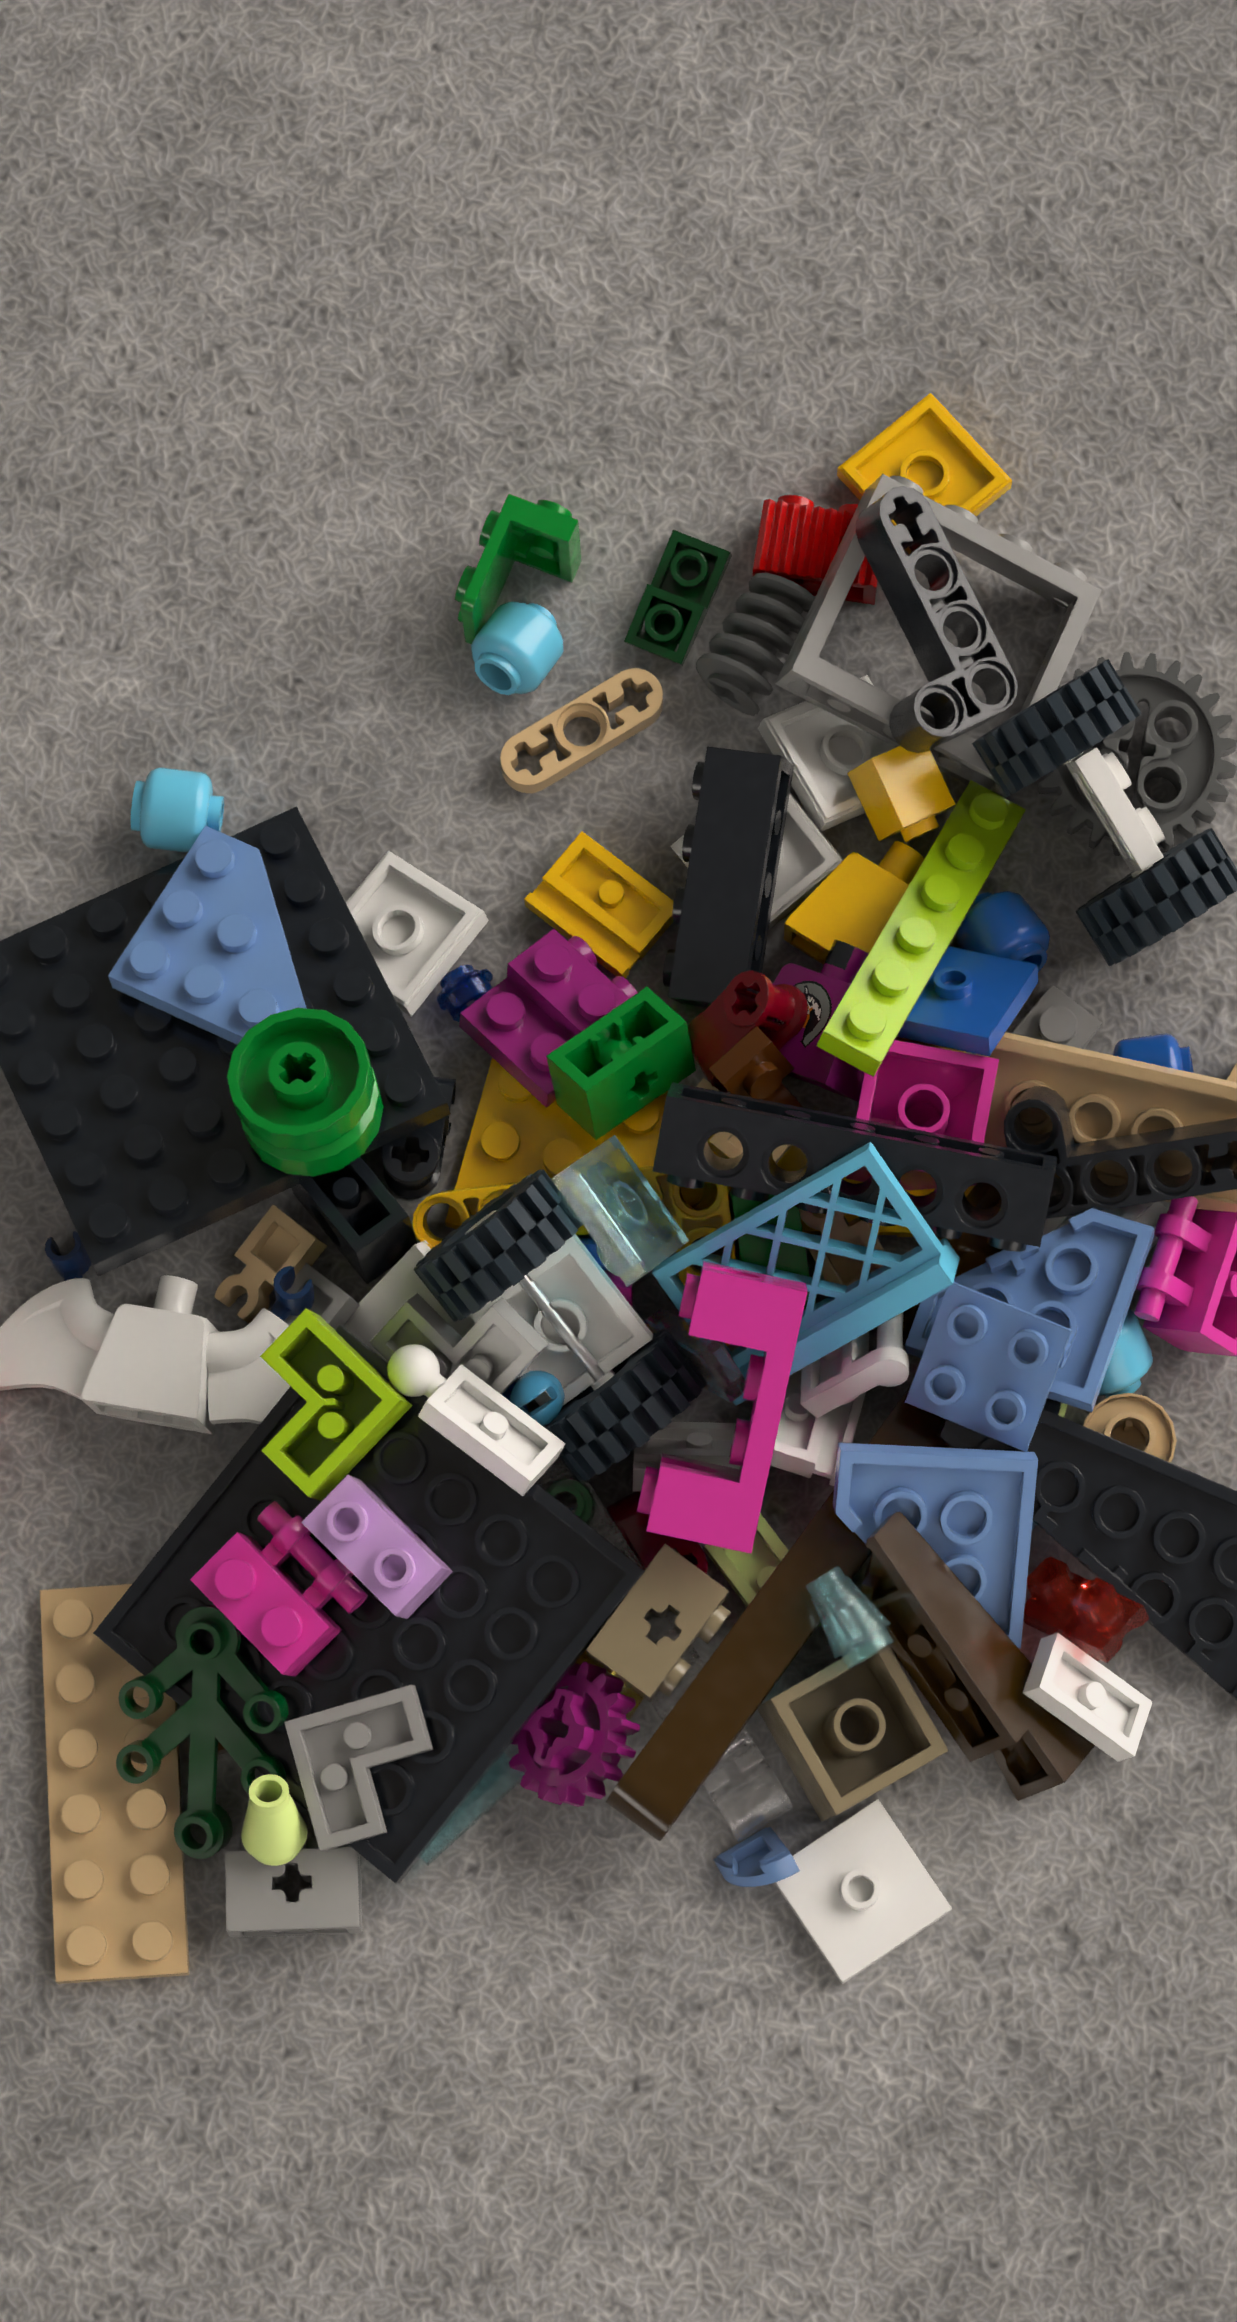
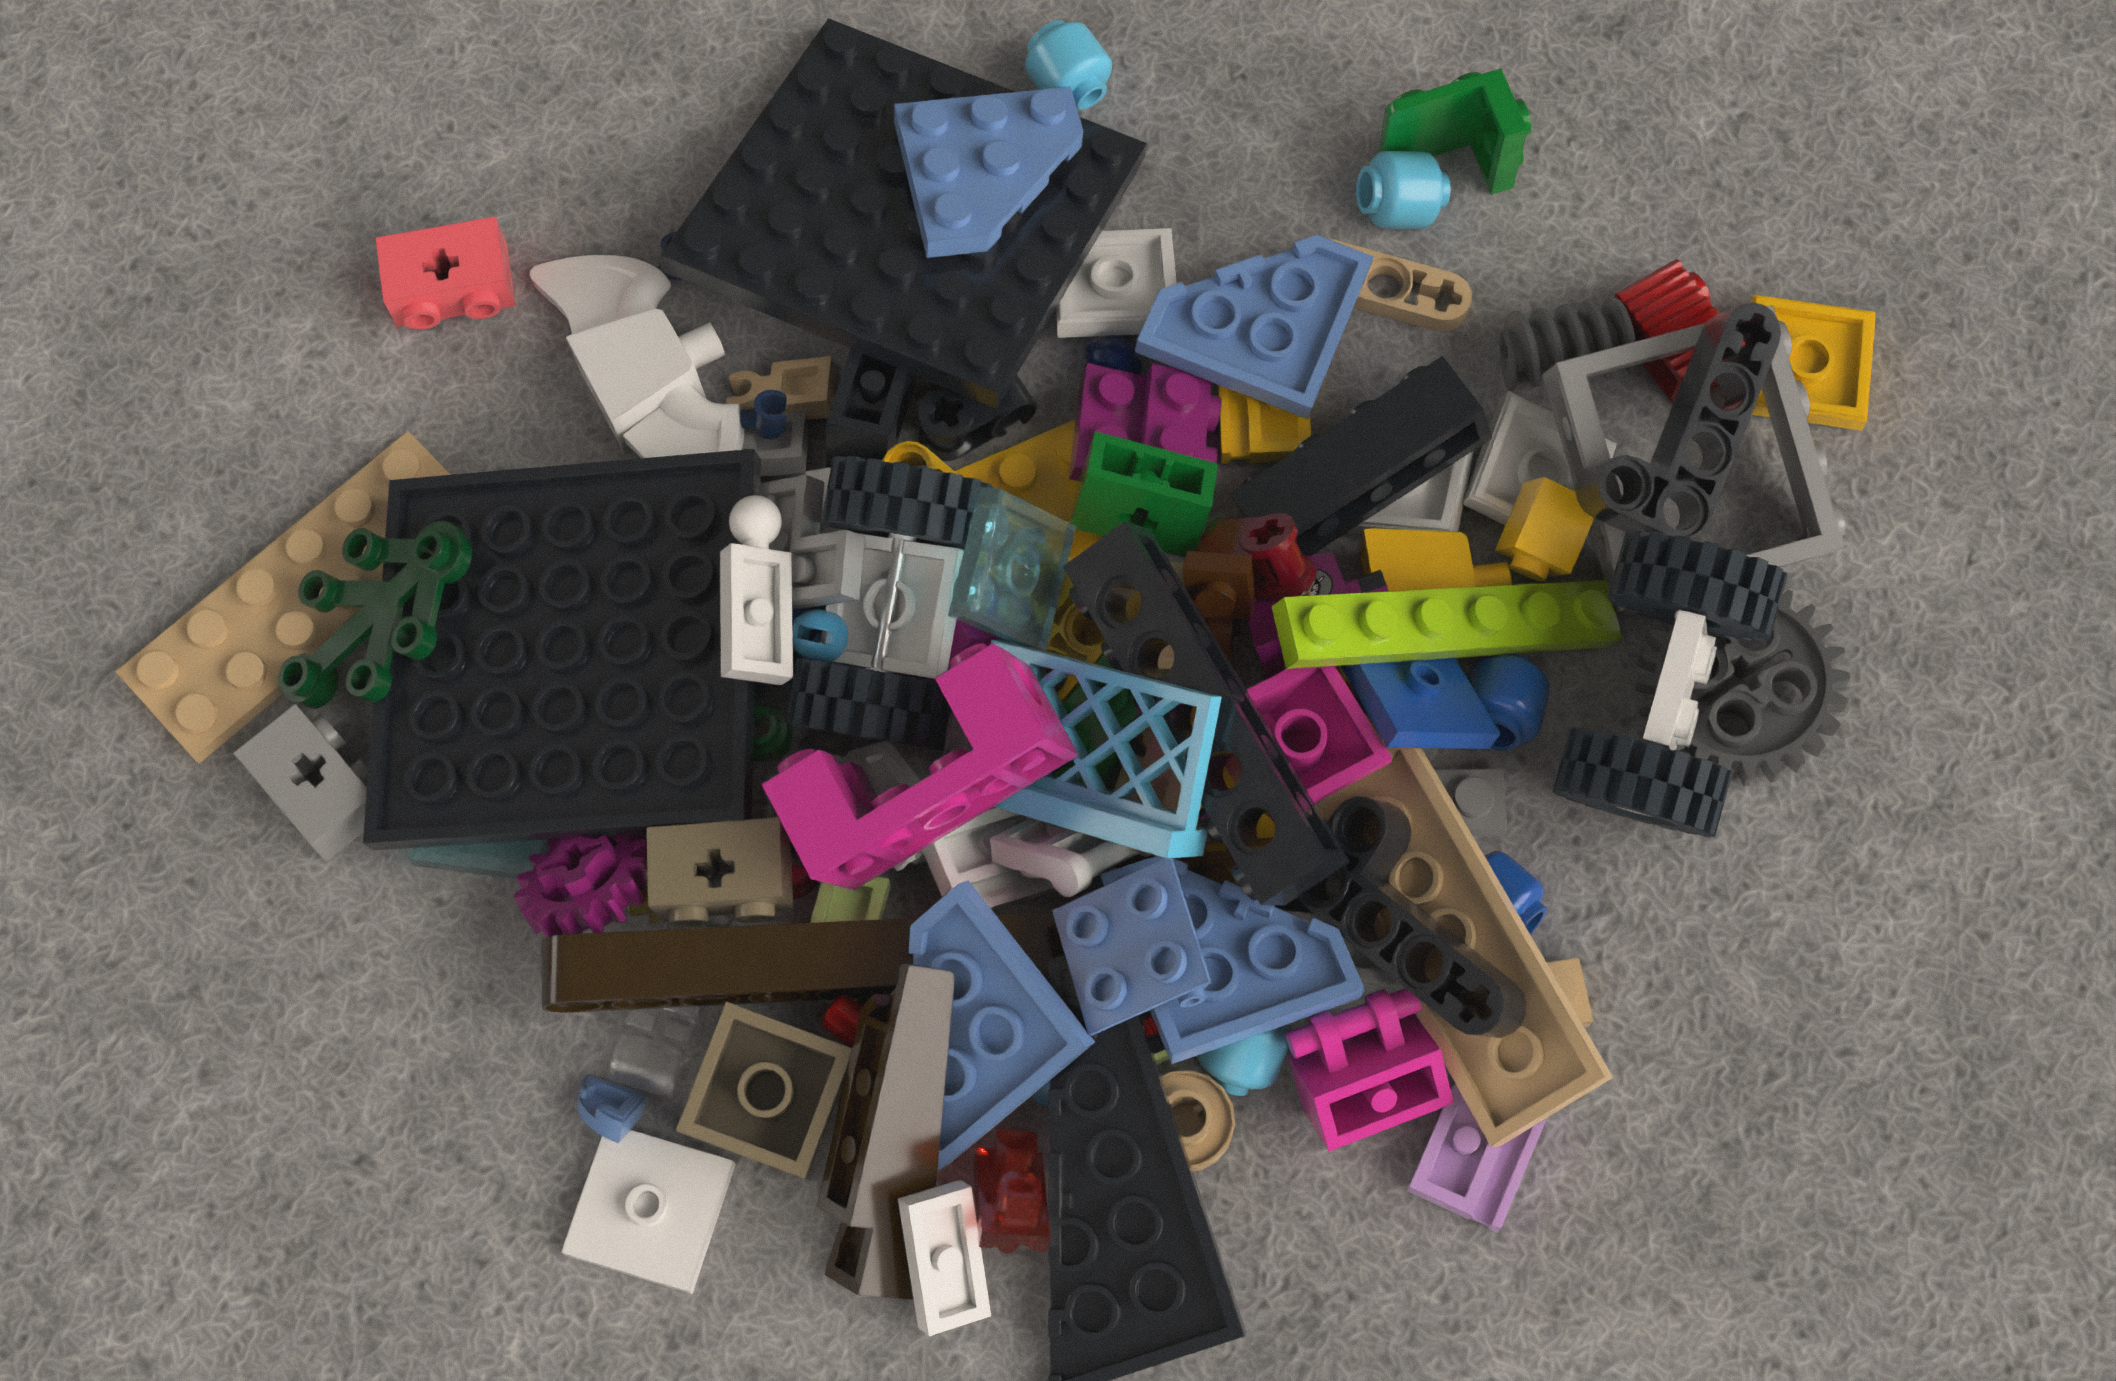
camera: 50 degrees right, 5 degrees down
(267, 1602) = (504, 568): dark pink brick -> none
(272, 1823) = (335, 713): yellowish green cone -> none
(305, 1092) = (908, 280): green wheel -> none
(336, 1755) = (423, 714): light grey plate -> none
(344, 1411) = (681, 489): lime brick -> none
(377, 1547) = (596, 607): lavender brick -> none
(547, 851) = (1261, 322): none -> medium blue plate
(678, 597) = (1541, 274): dark green slope -> none
(848, 1618) = (837, 1007): clear light blue cone -> none

